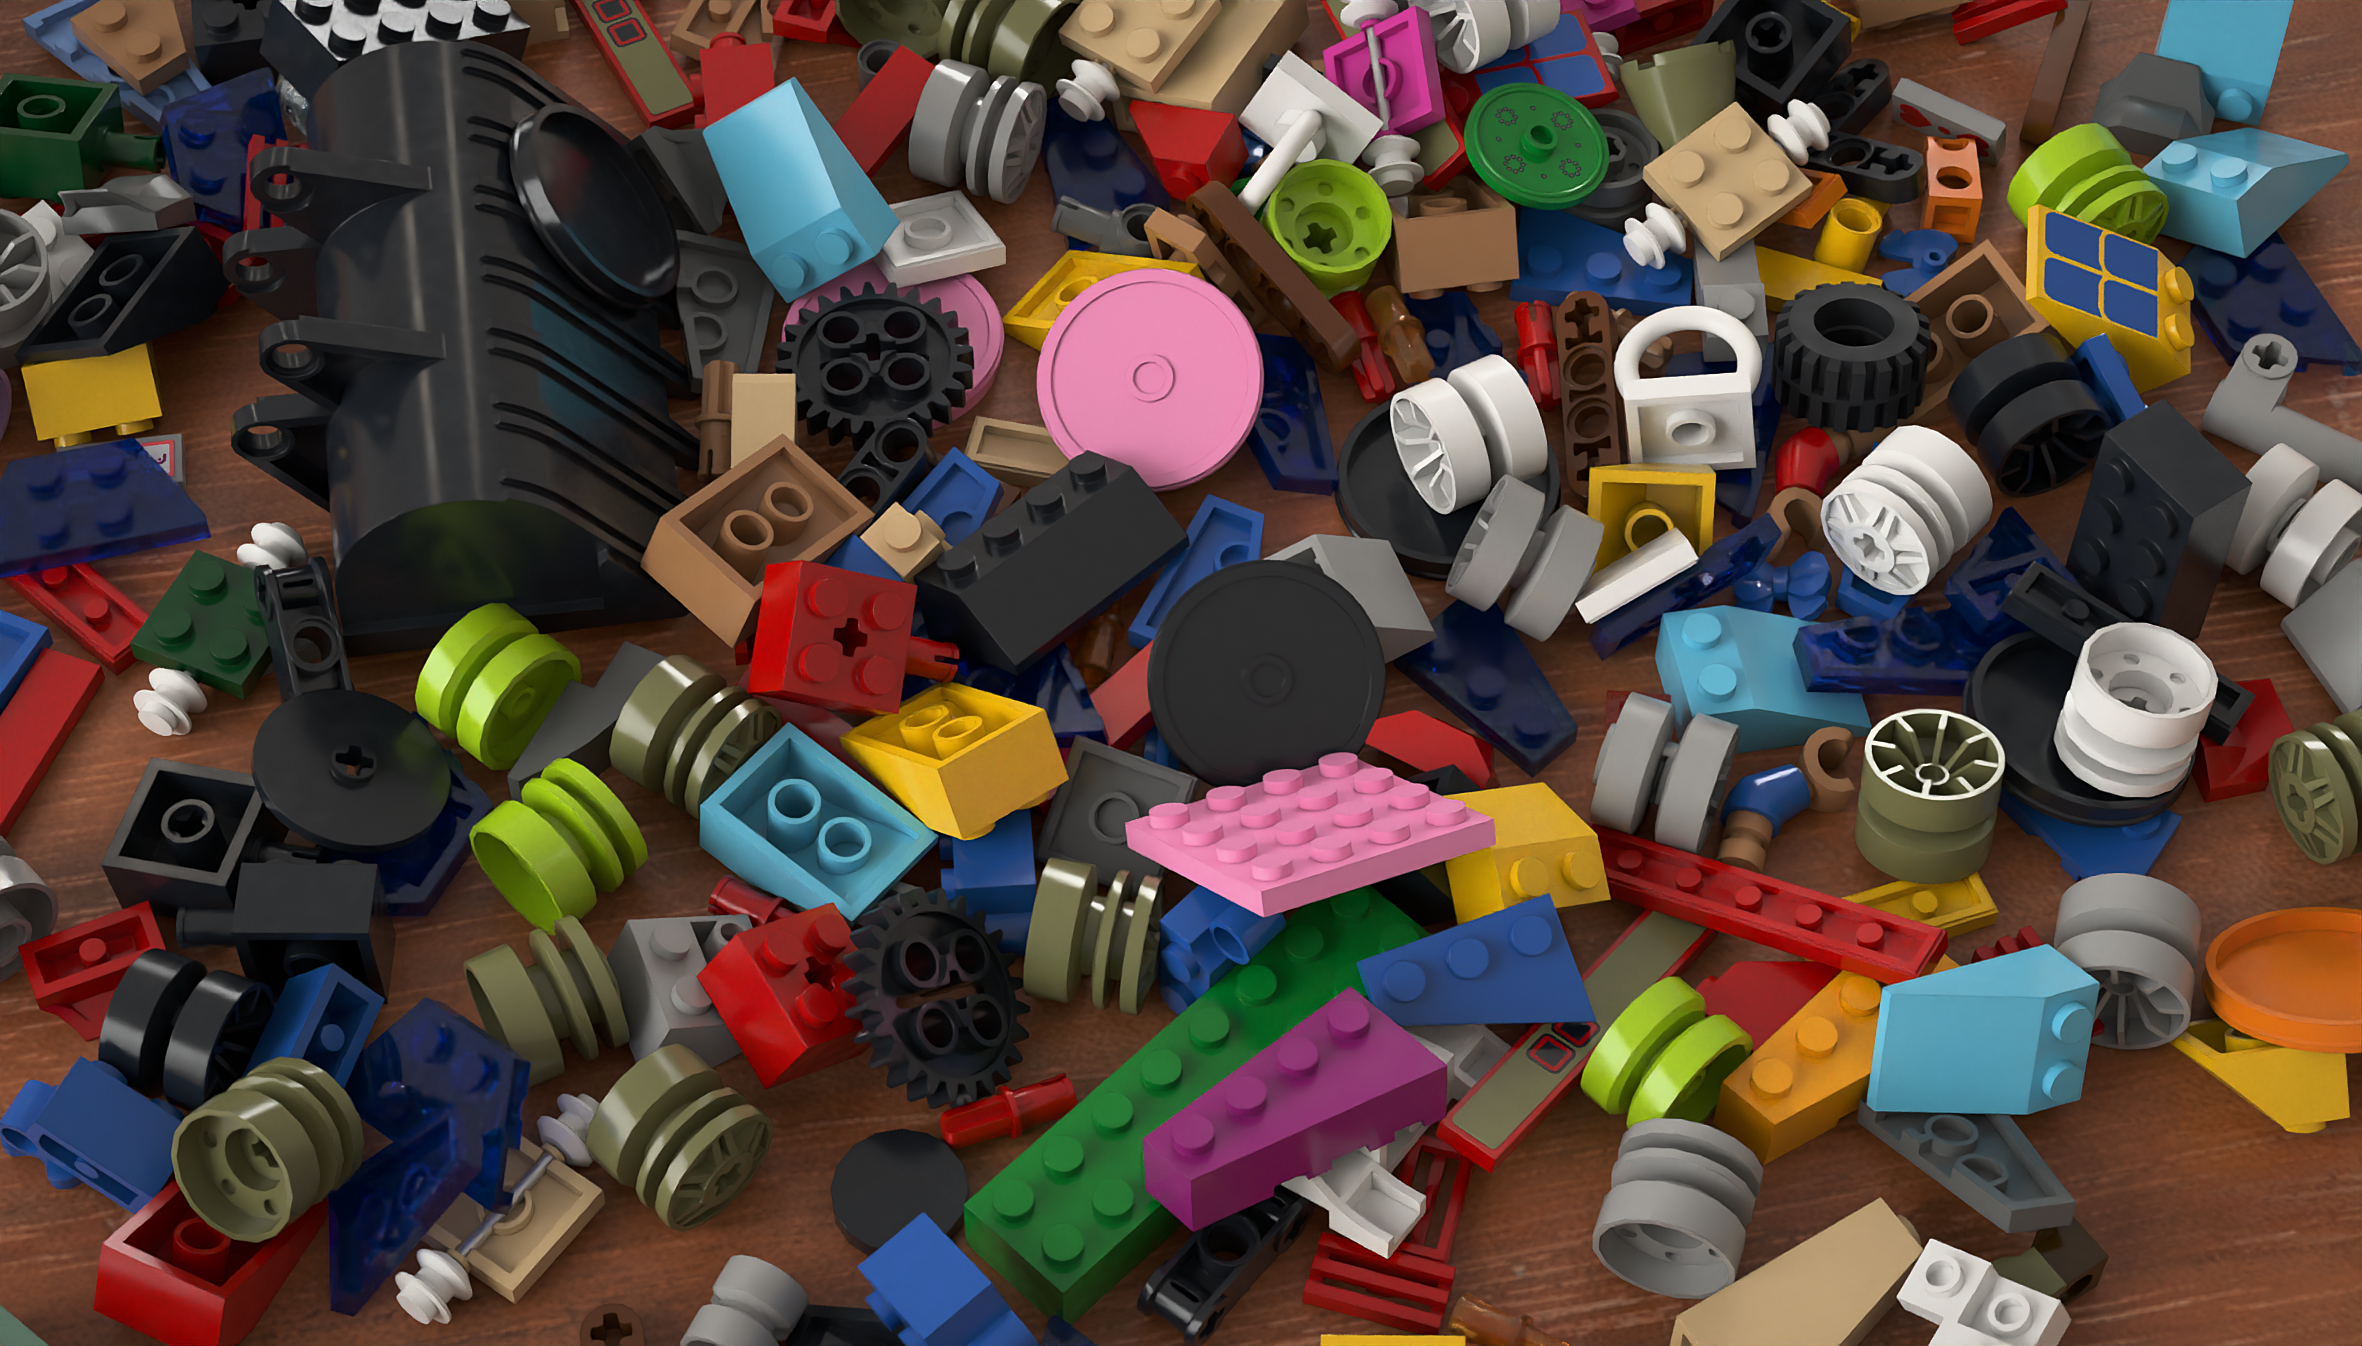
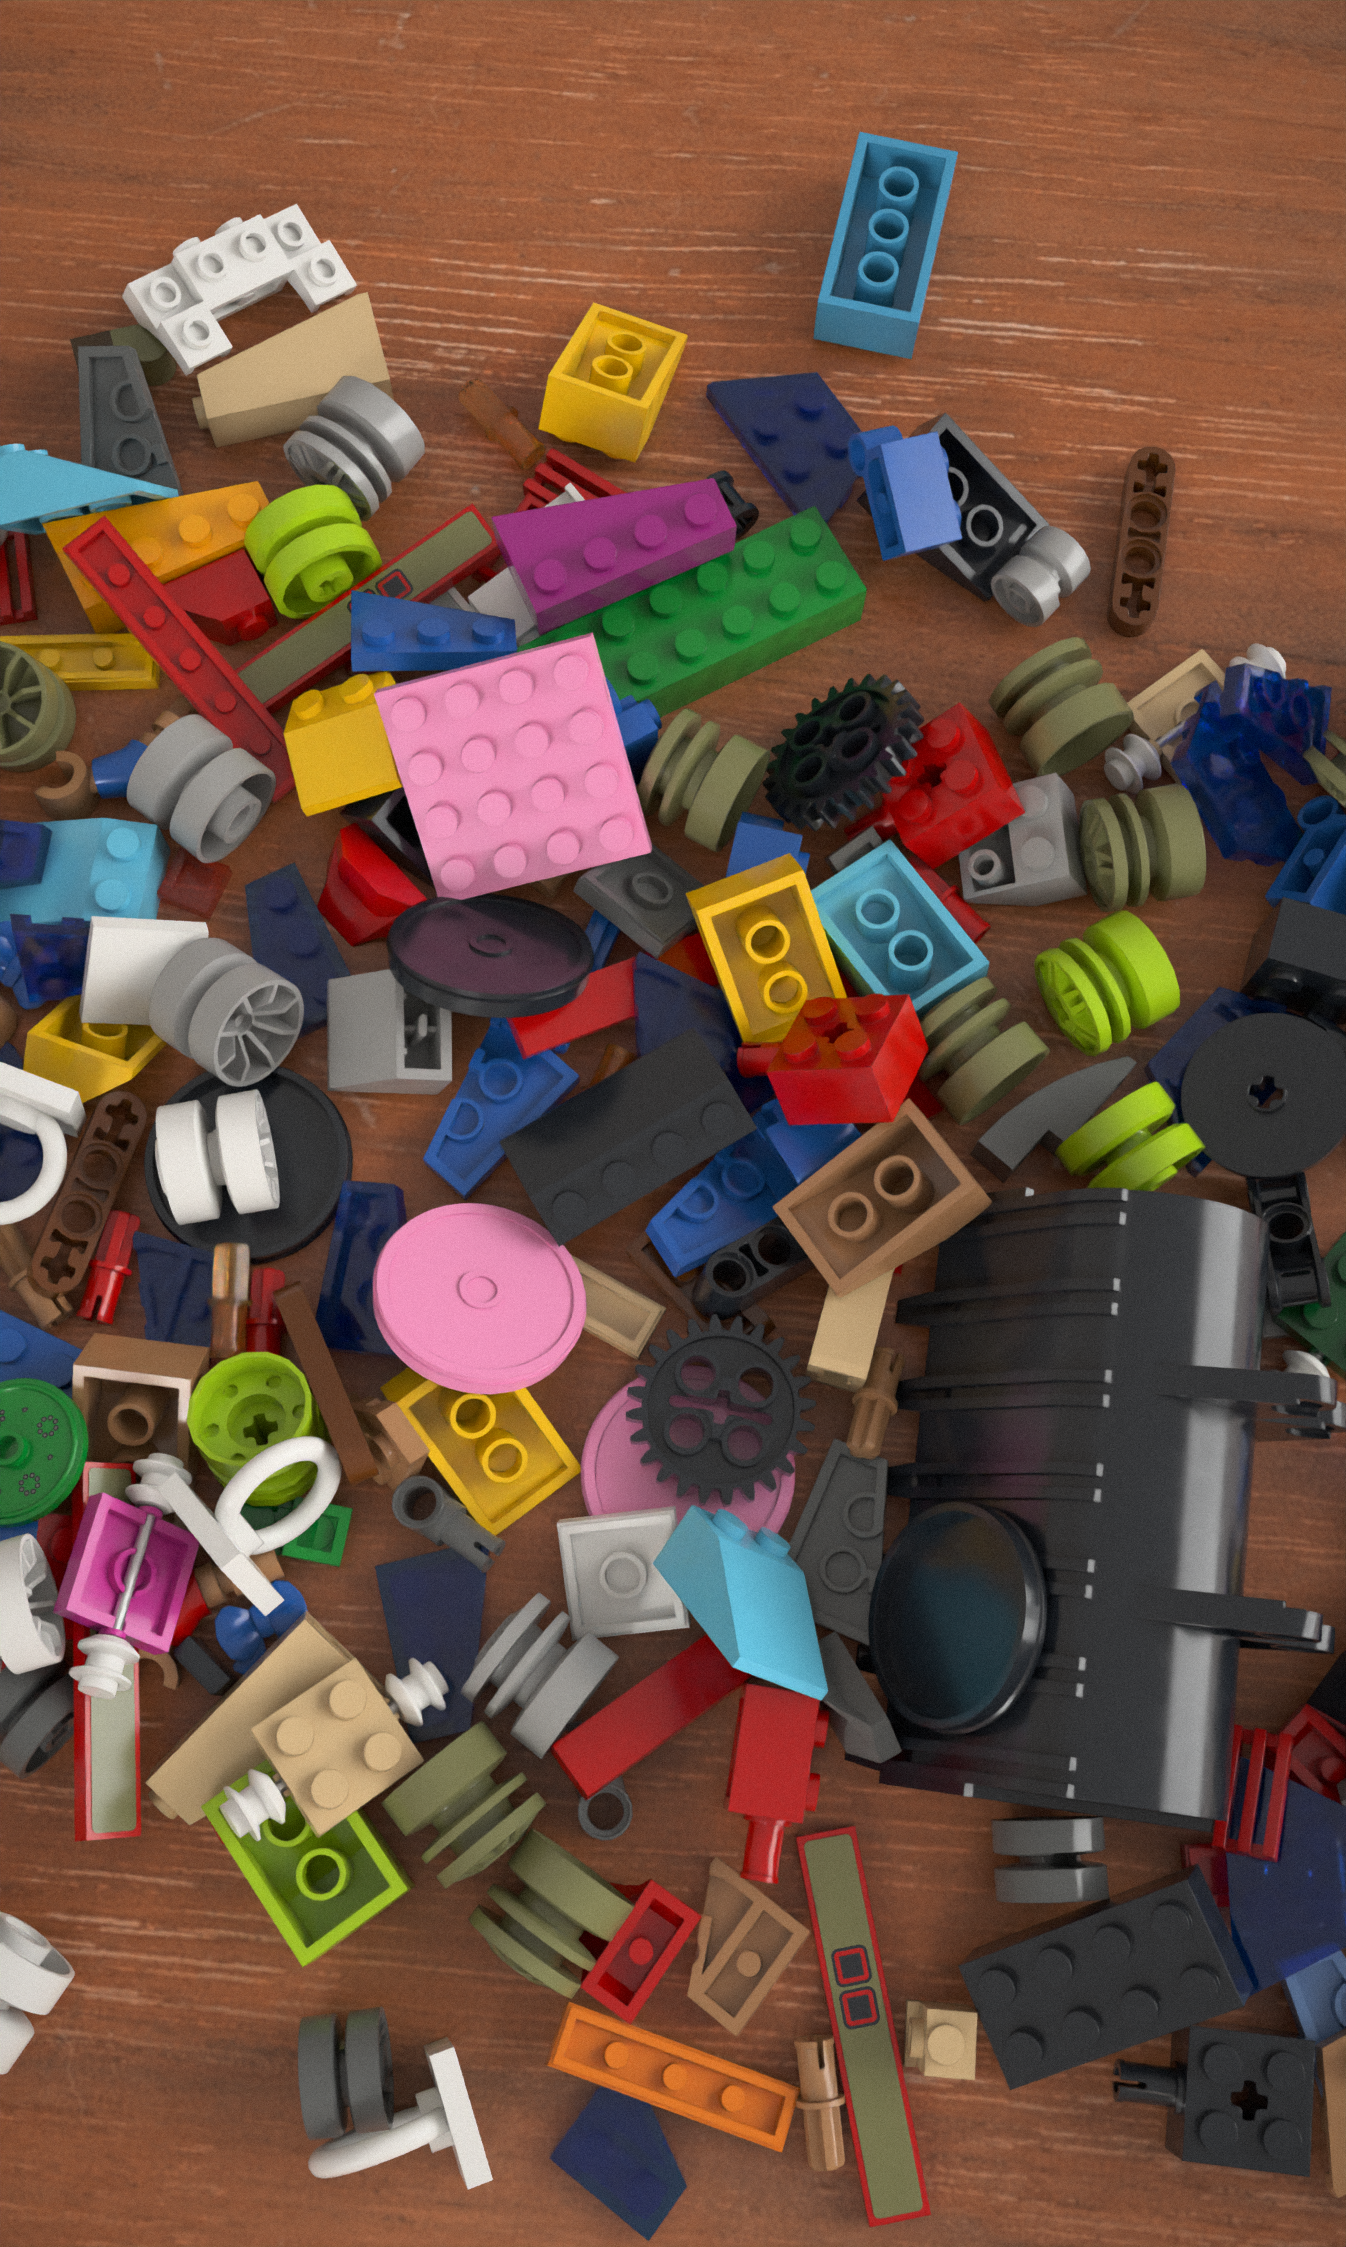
camera: 165 degrees left, 20 degrees up
(894, 1180) = (905, 648): black tile -> none
(906, 541) = (749, 1171): tan brick -> none
(1008, 1112) = (799, 689): red axle -> none
(1189, 145) = (344, 1596): red slope -> none

